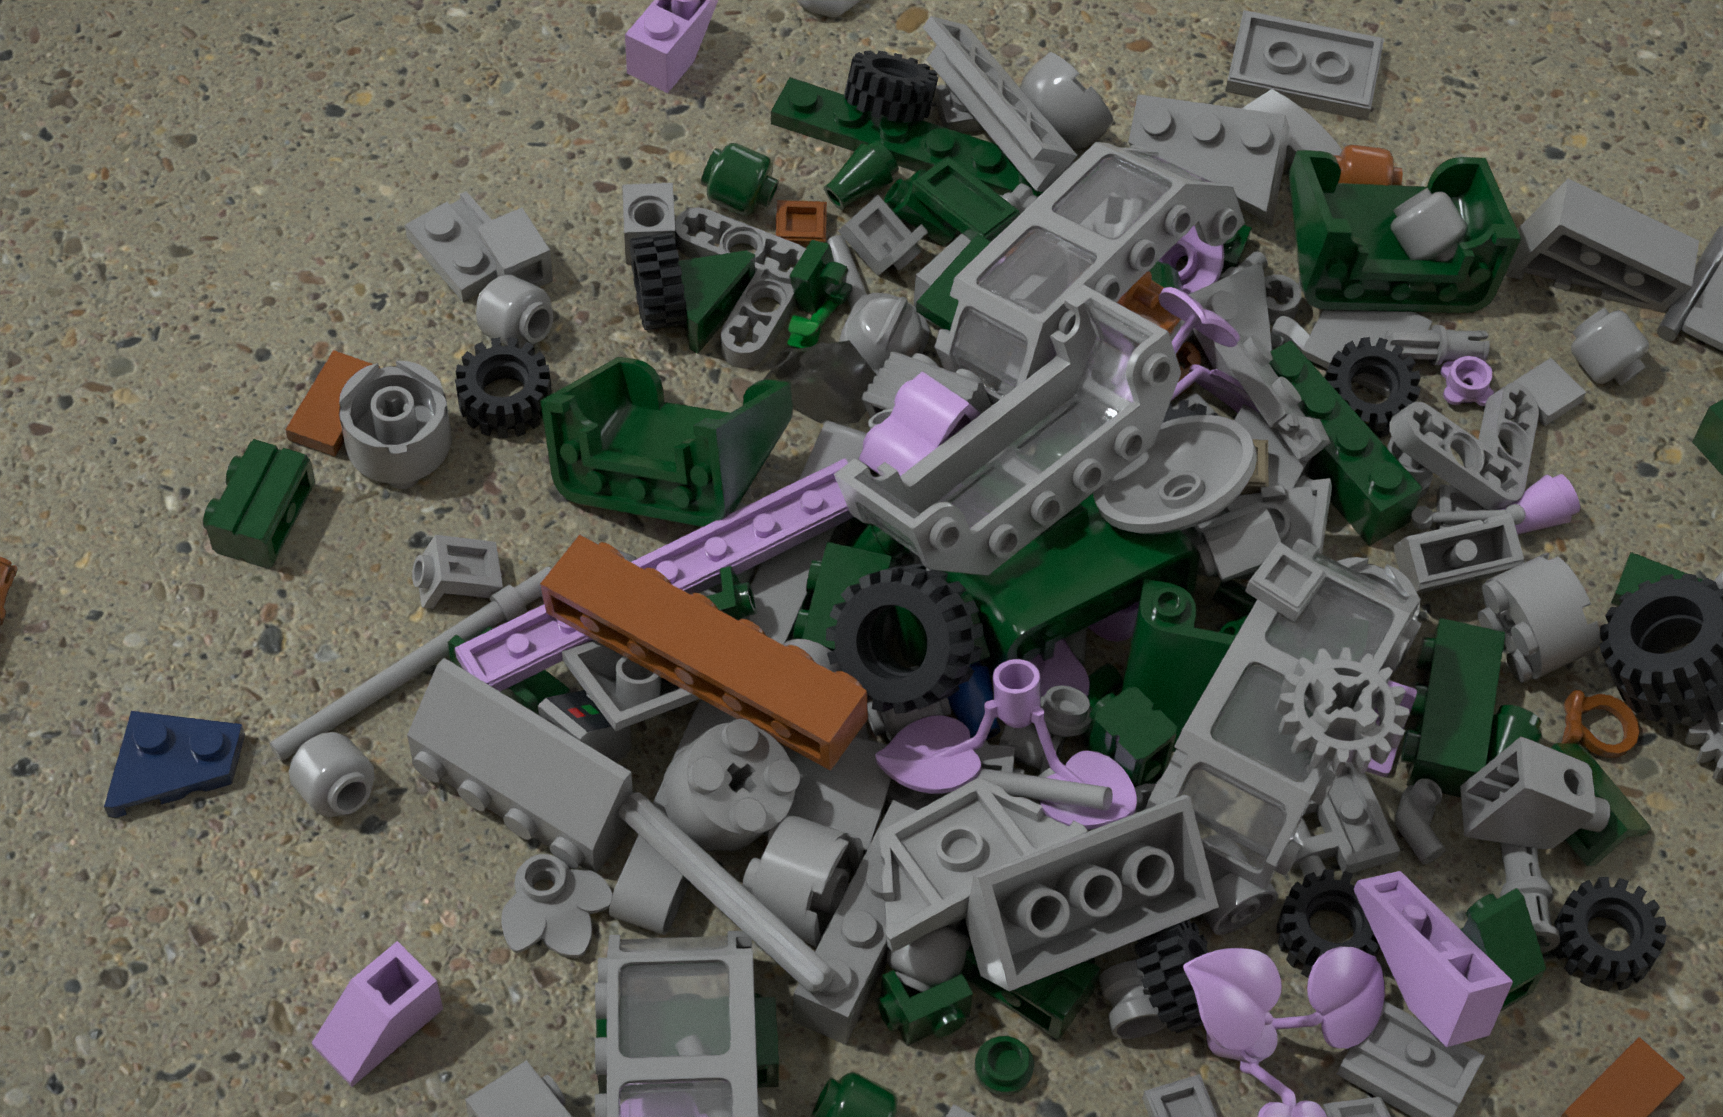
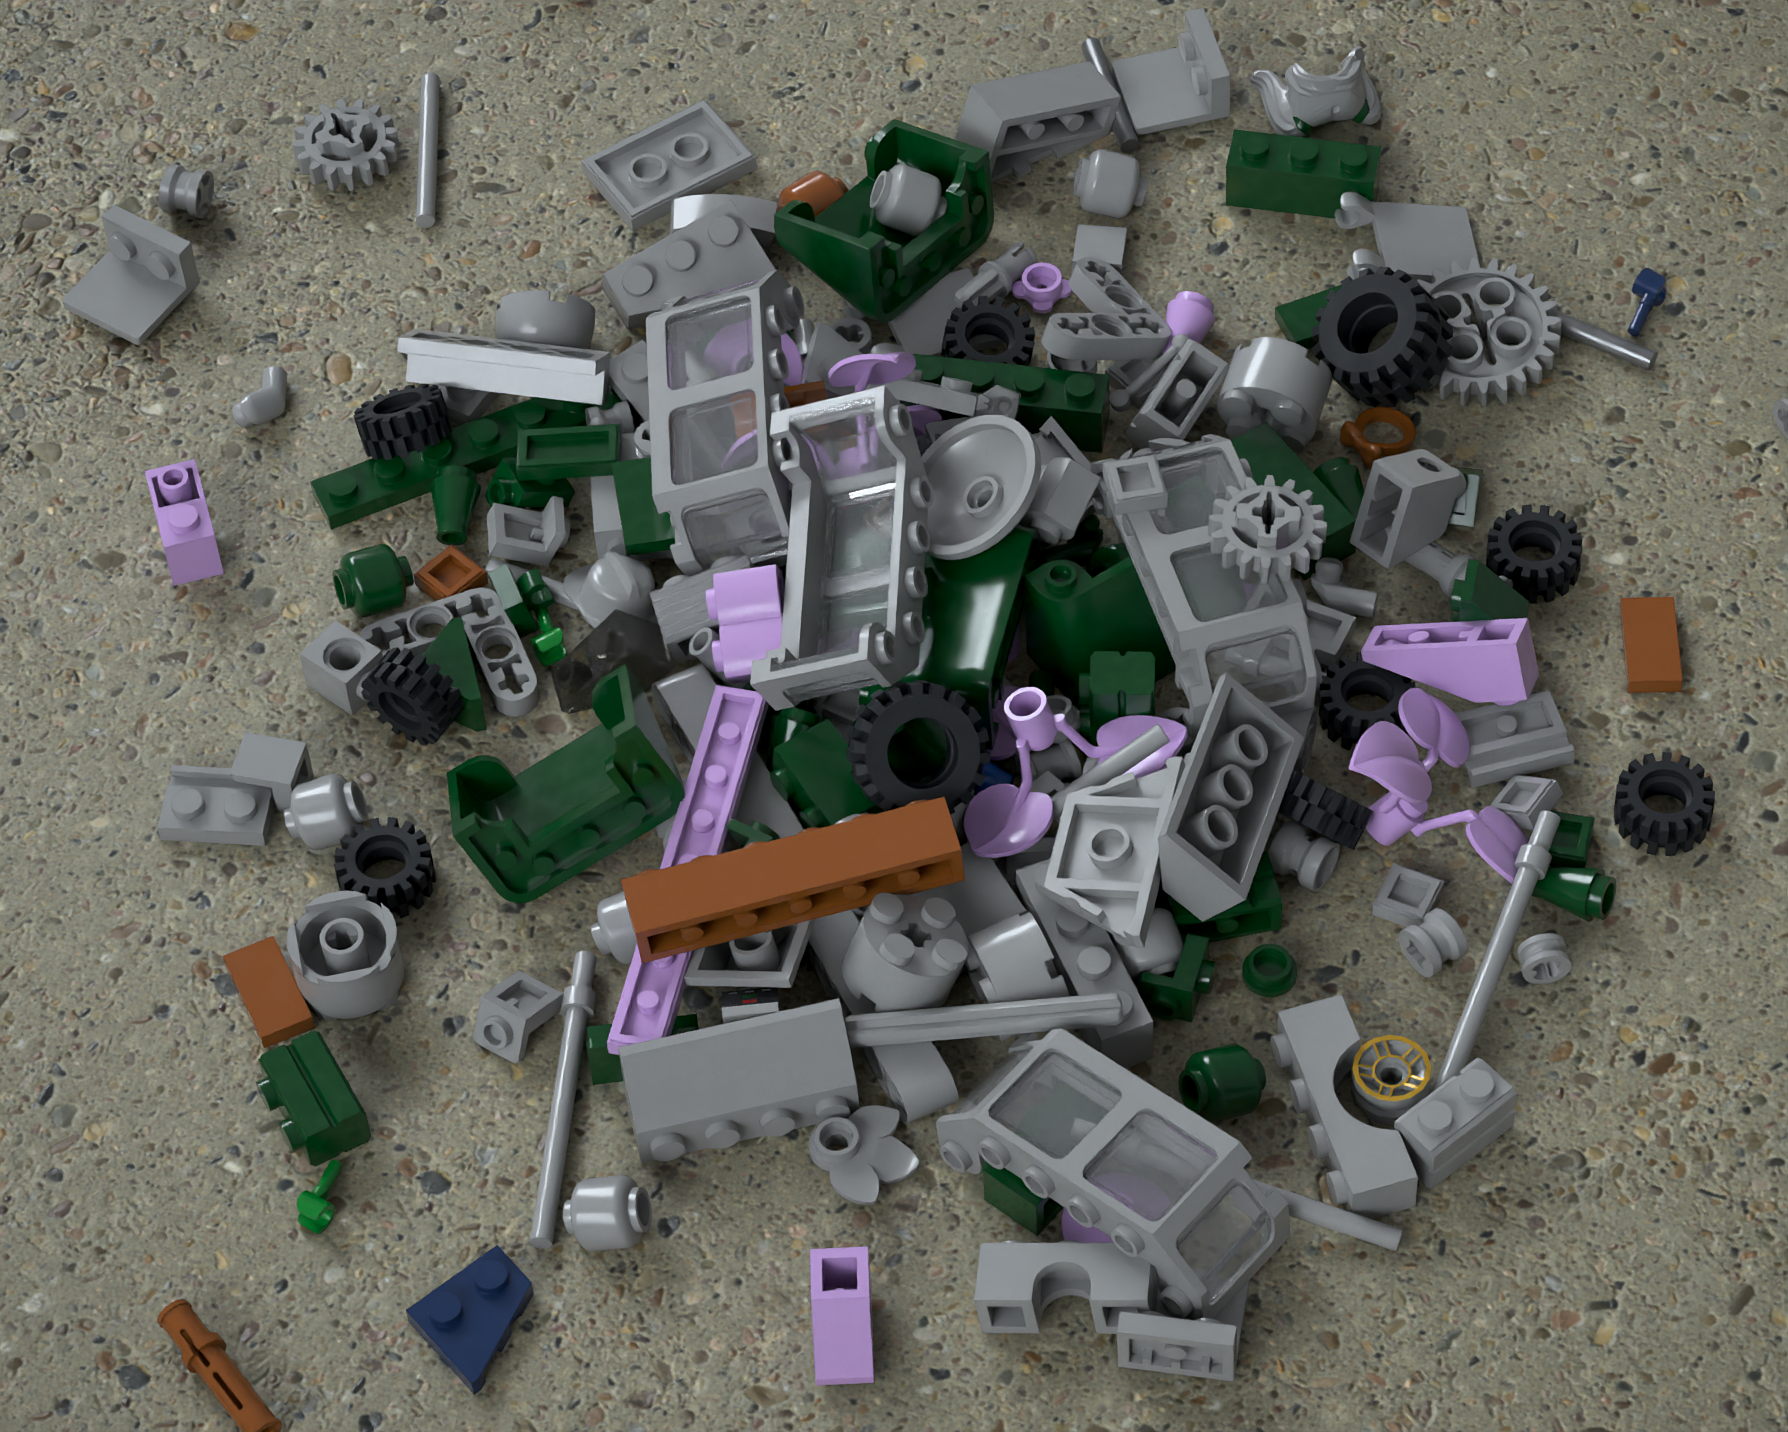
camera: 40 degrees left, 5 degrees down
(170, 578) = (313, 1208): none -> green hand

